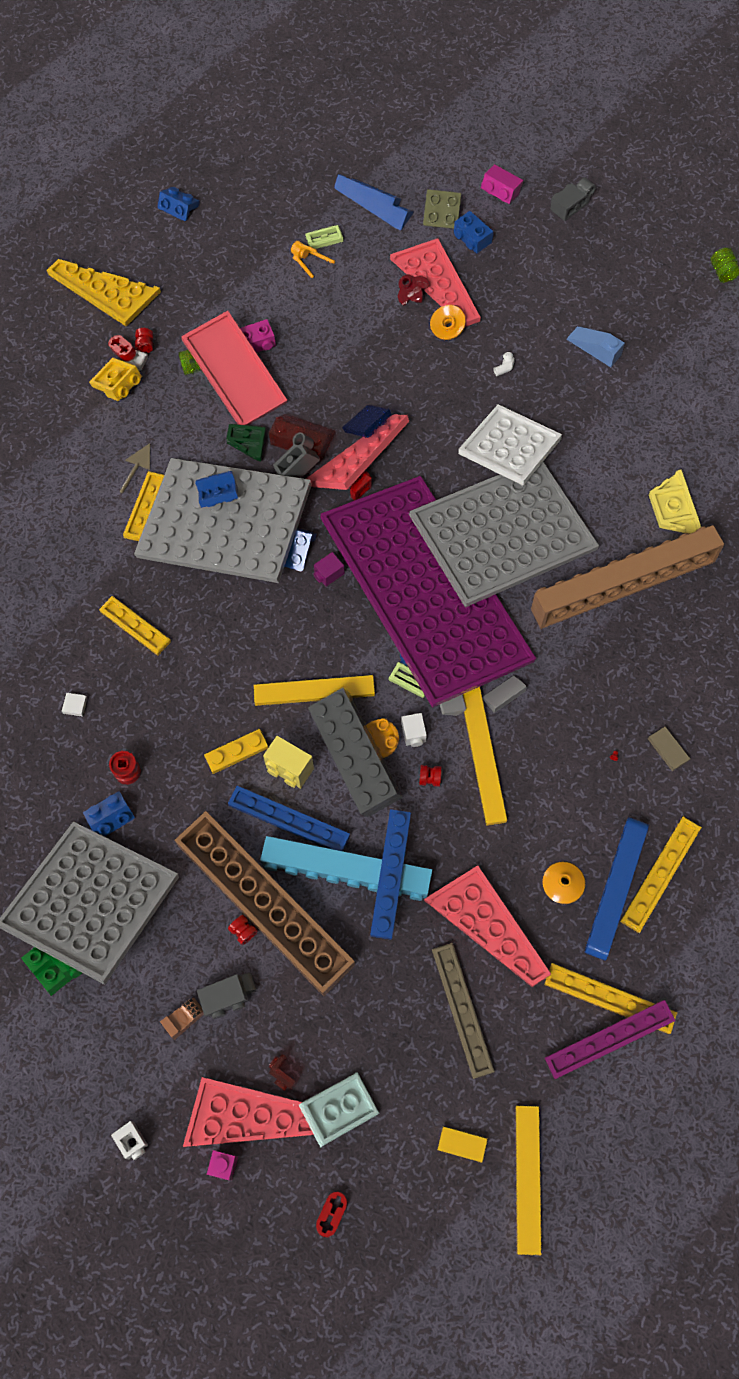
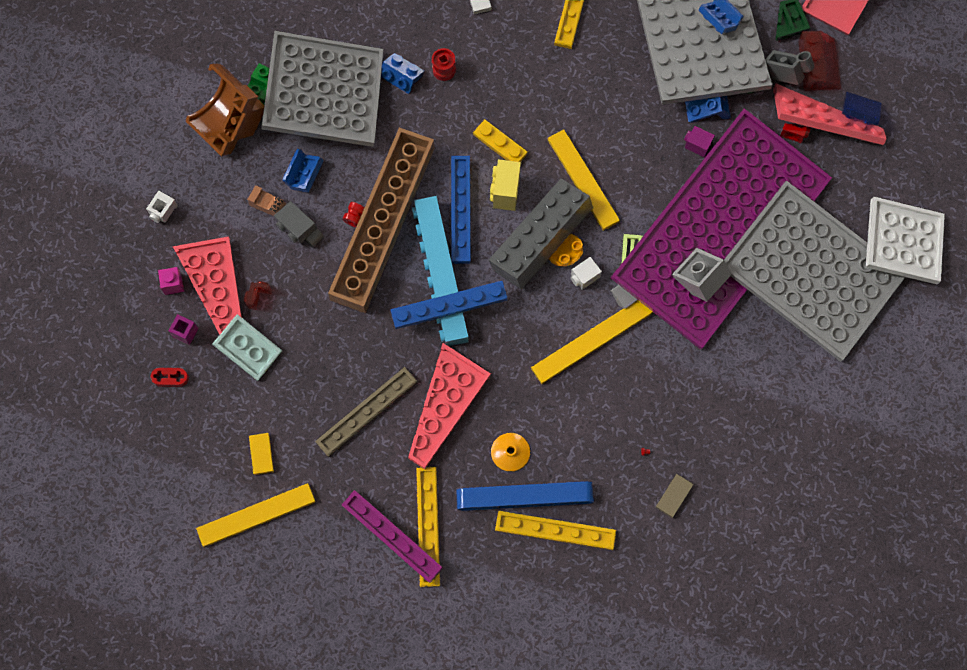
camera: 65 degrees right, 5 degrees up
(60, 1018) = (229, 114): none -> dark orange piece
(167, 964) = (302, 171): none -> blue bracket
(287, 1174) = (183, 329): none -> magenta brick
(435, 775) = (551, 303): red wheel -> none
(468, 623) = (702, 274): none -> light grey slope
(504, 693) = (657, 336): light grey slope -> none
(626, 576) = (822, 395): medium nougat brick -> none
(674, 505) = (923, 413): light yellow wing -> none

